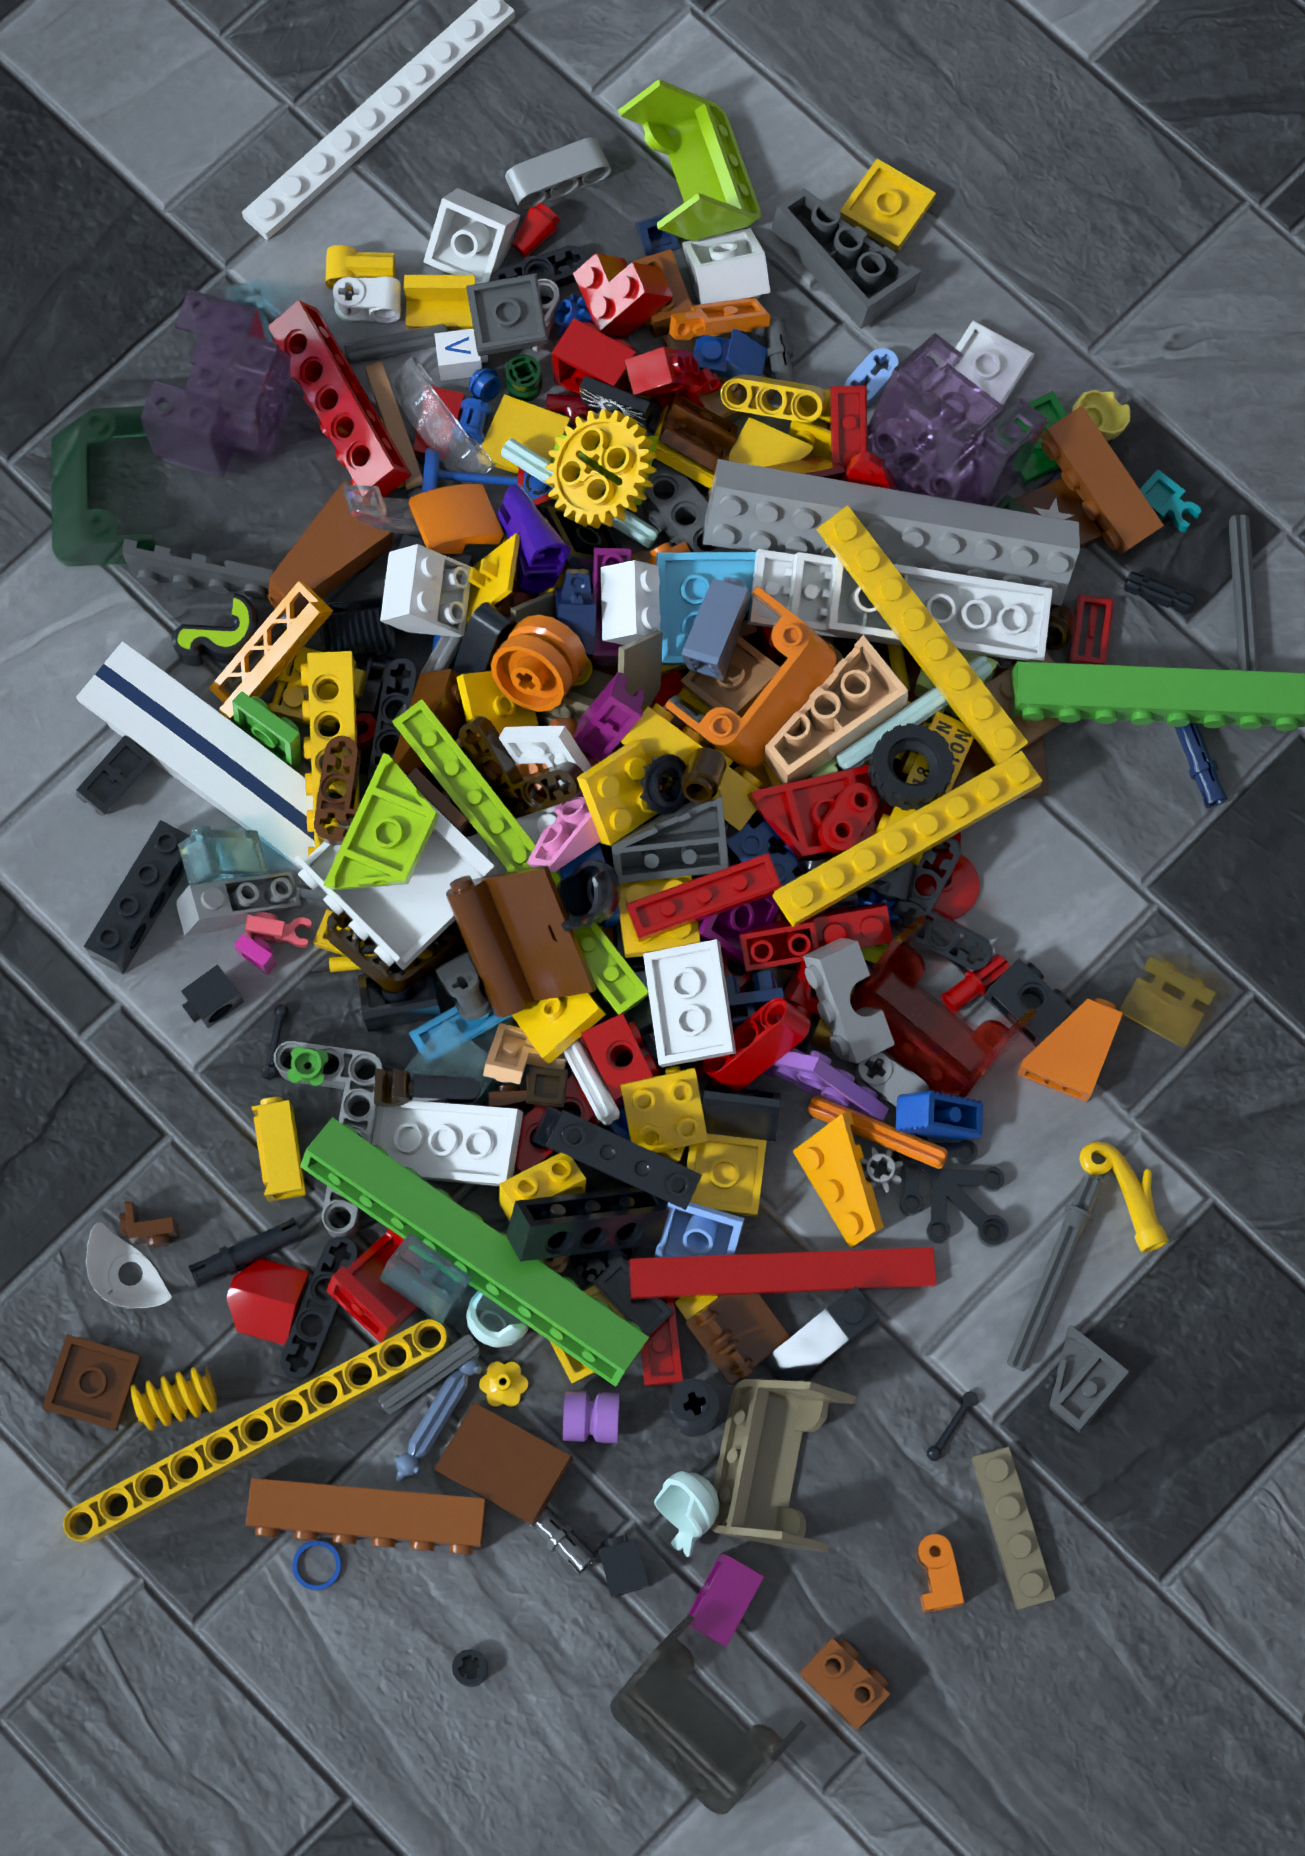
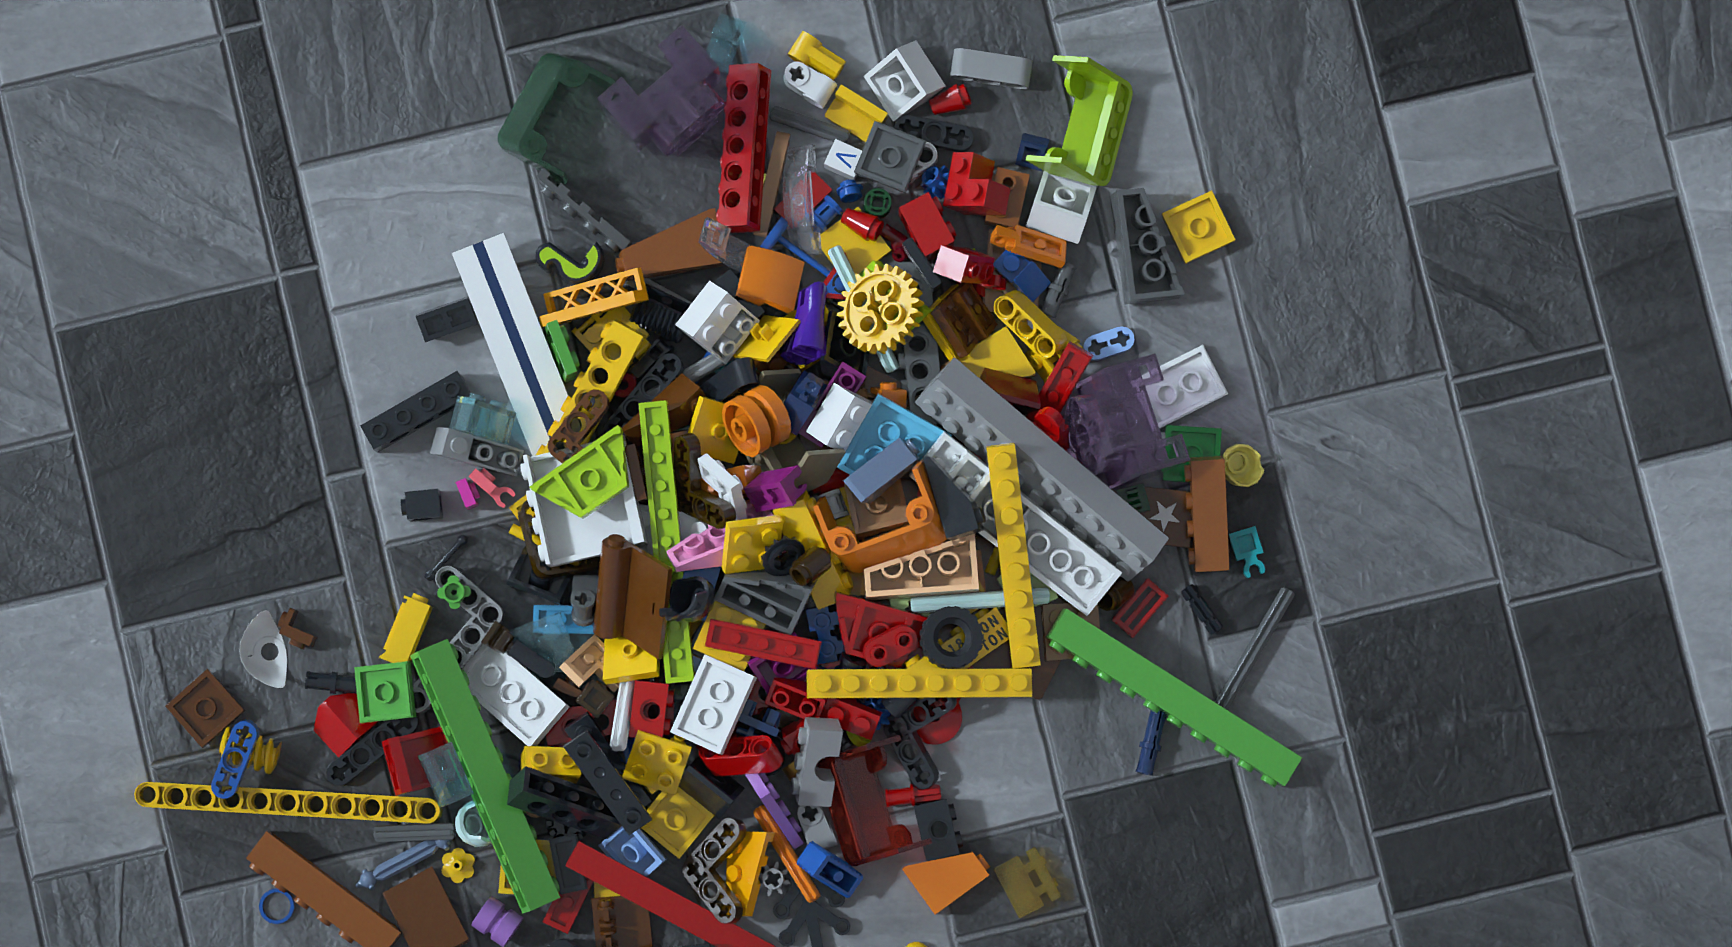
camera: 30 degrees right, 10 degrees up
(148, 1404) = (249, 742): none -> blue beam
(295, 1229) = (385, 692): none -> bright green plate
(522, 404) = (863, 224): none -> red cone
(796, 1199) = (708, 867): none -> dark brown beam
(825, 611) = (956, 508): none -> black slope

